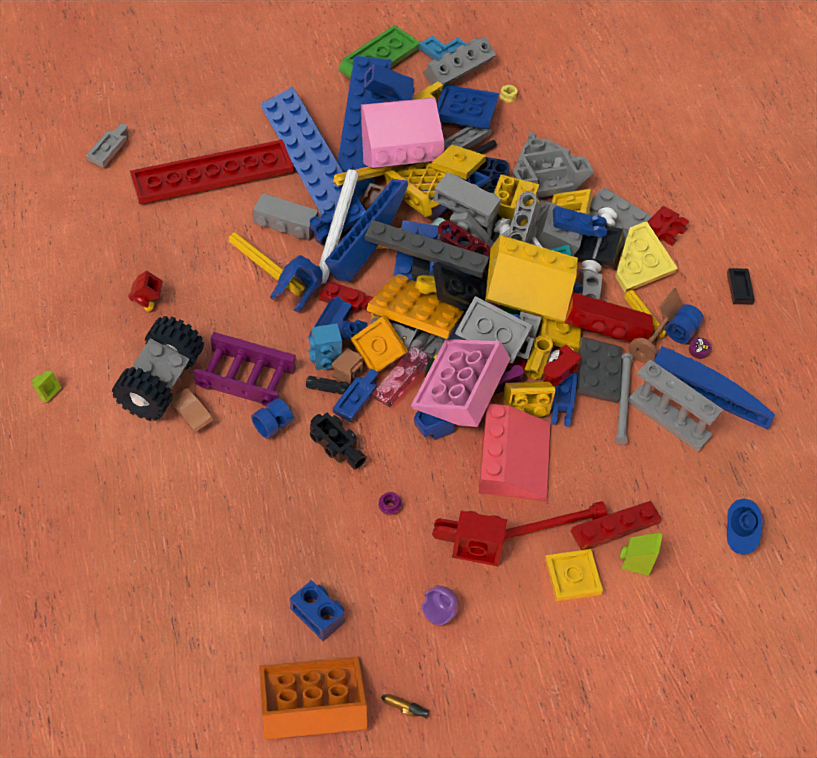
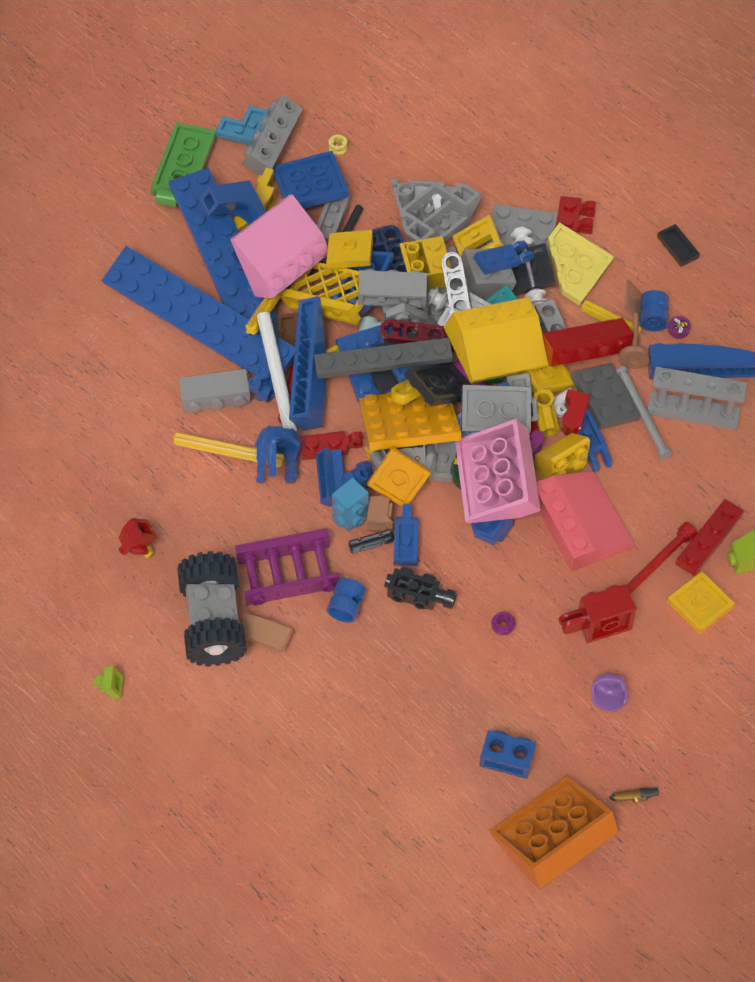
camera: 25 degrees left, 5 degrees up
(211, 171) = (105, 380): red plate -> none
(401, 376) = (435, 498): clear pink plate -> none

